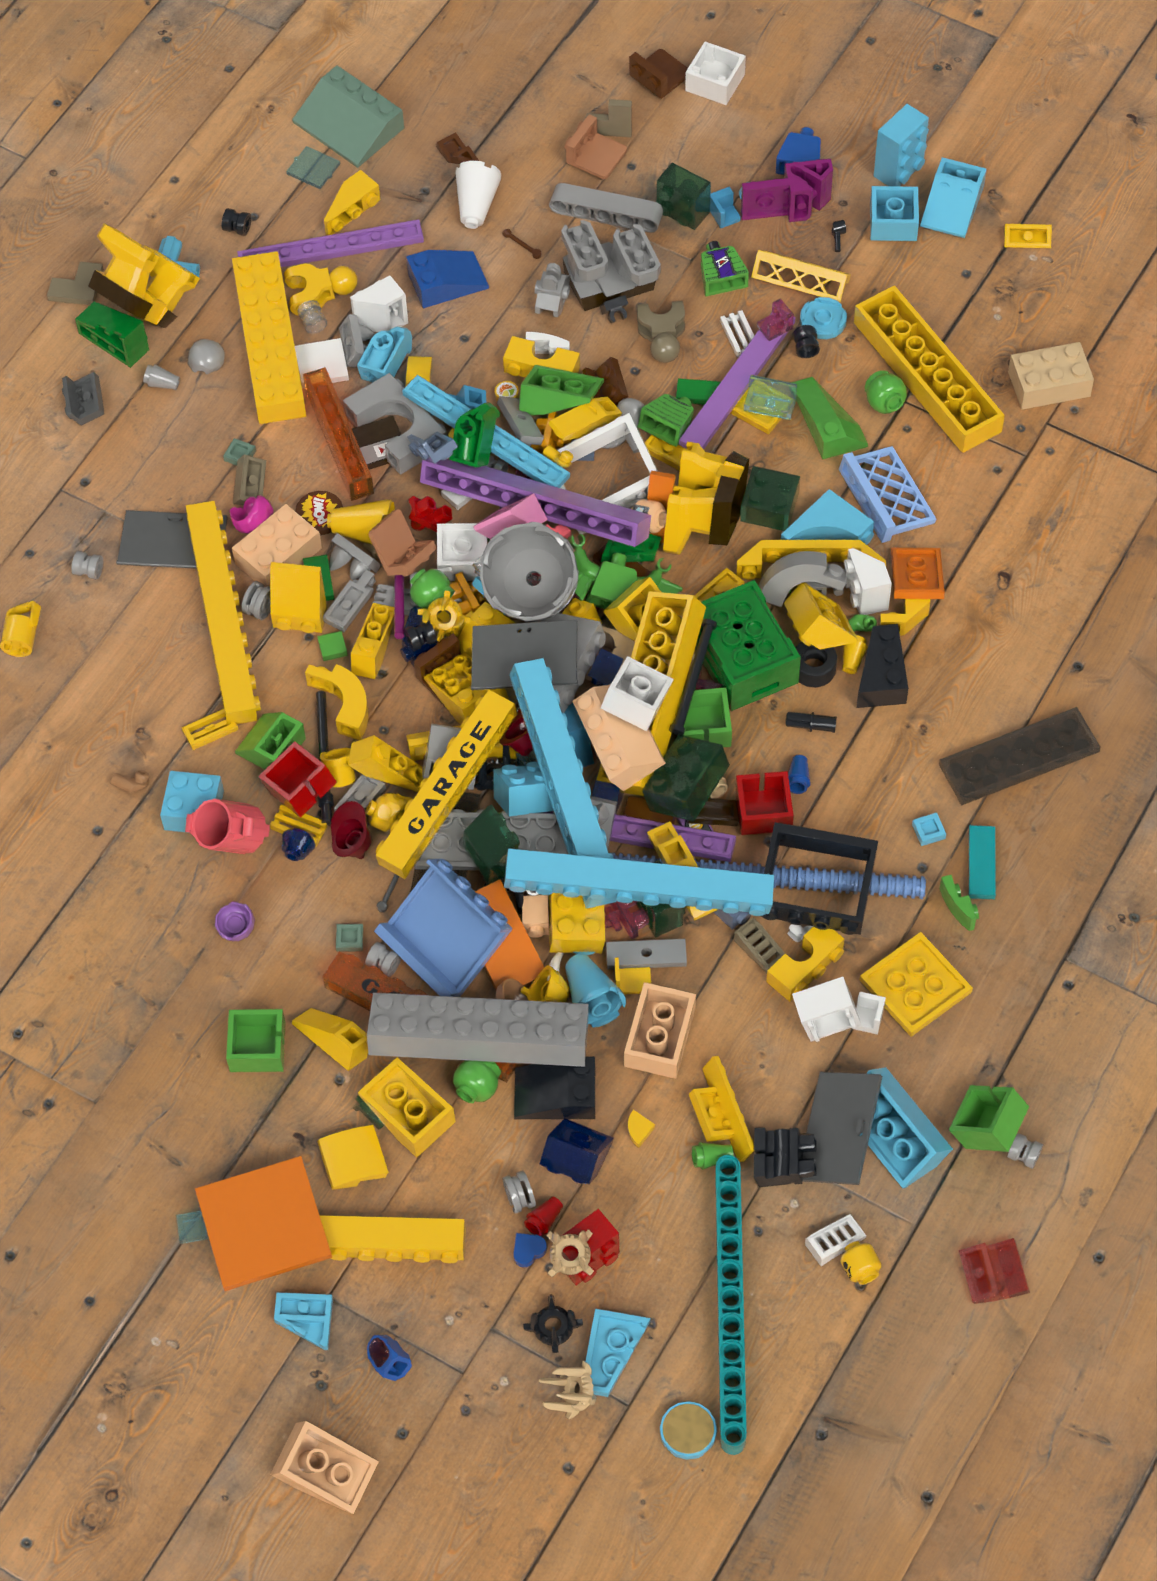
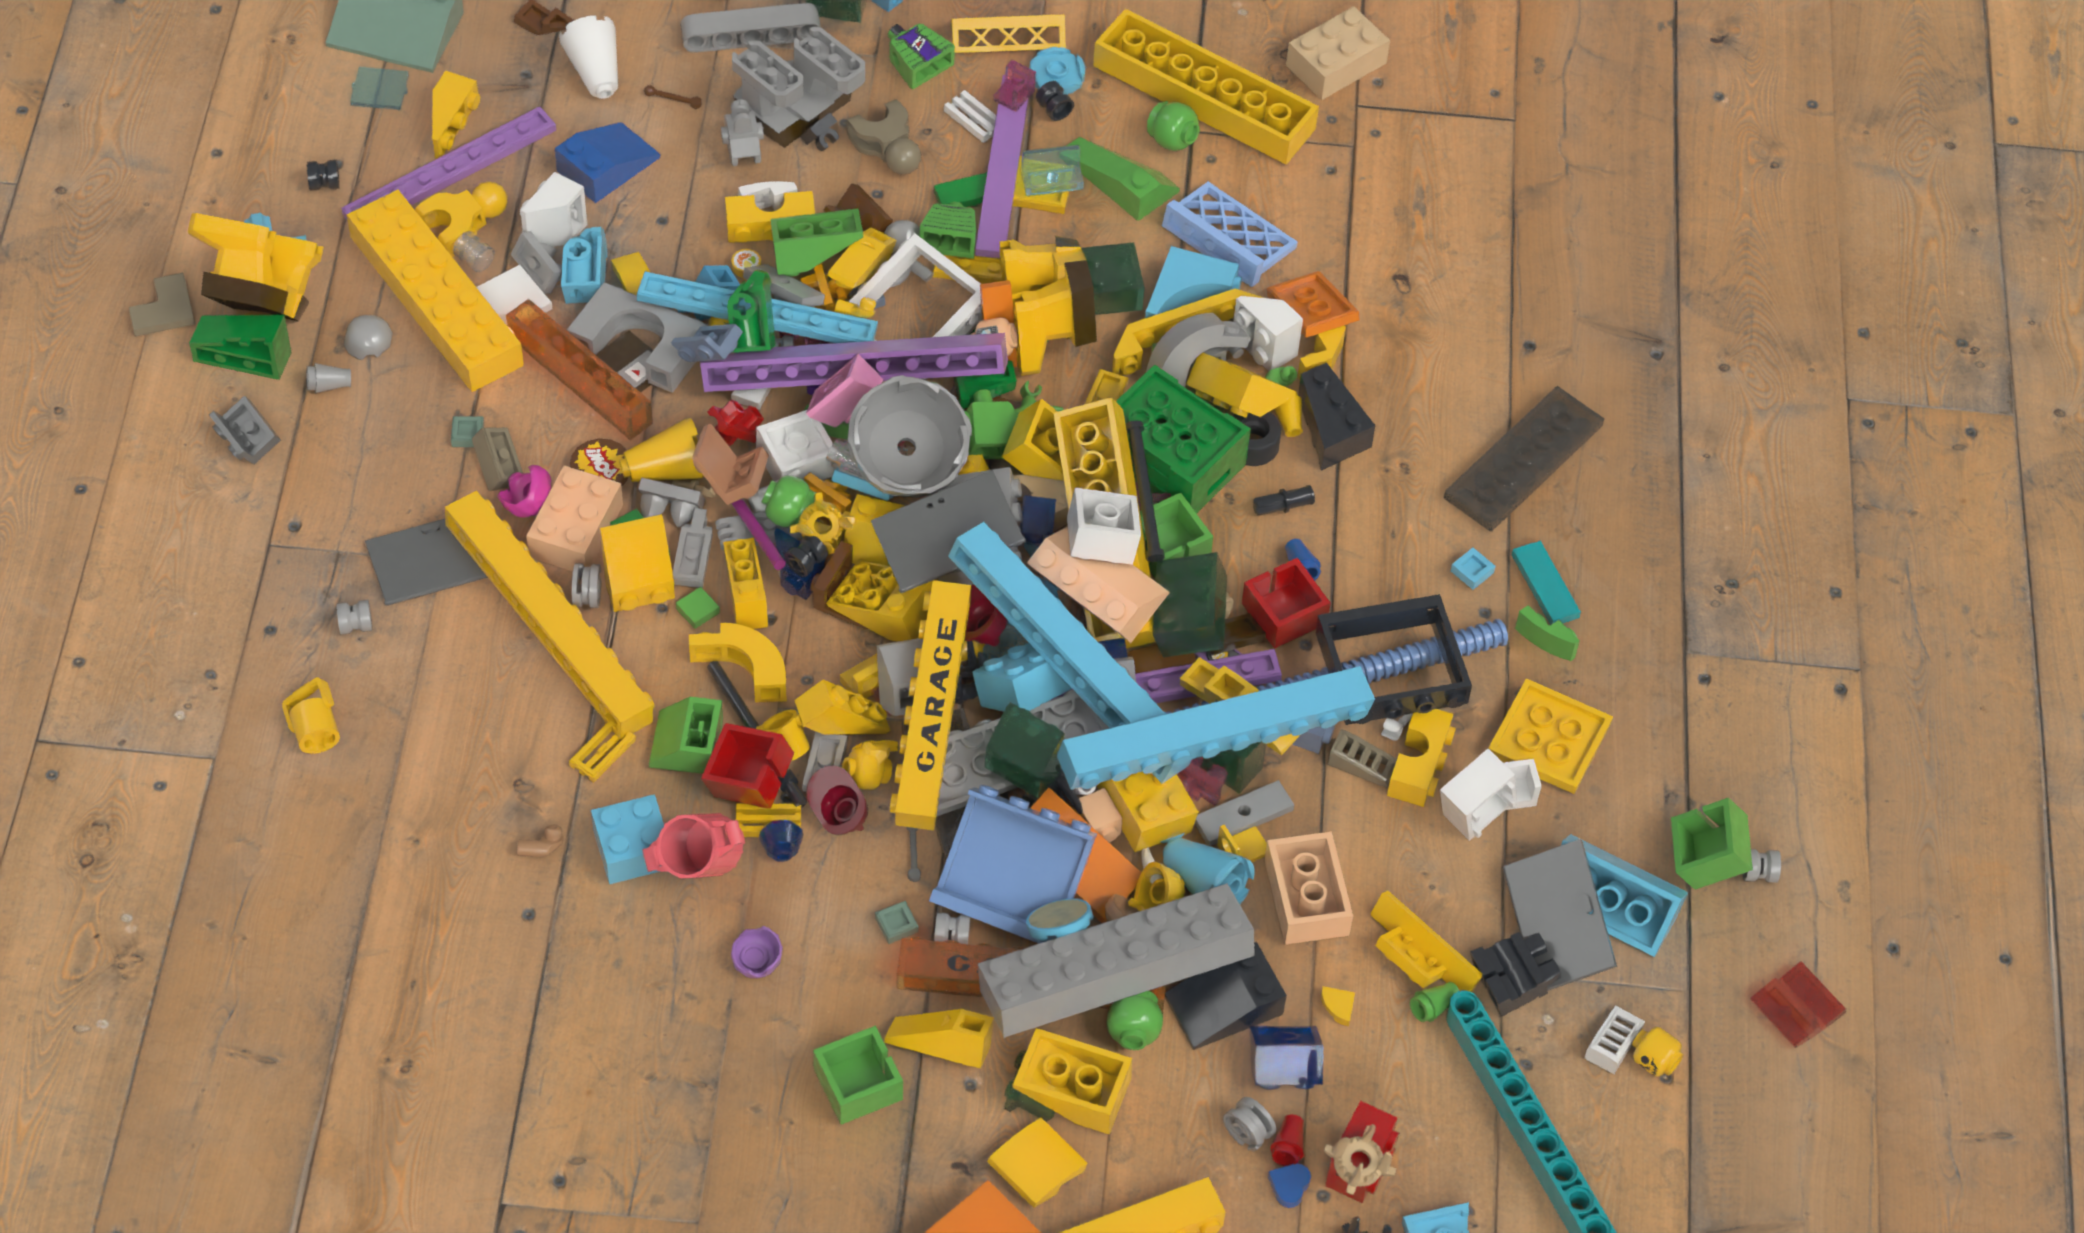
camera: 30 degrees left, 5 degrees down
(455, 981) = (1059, 918): none -> tile

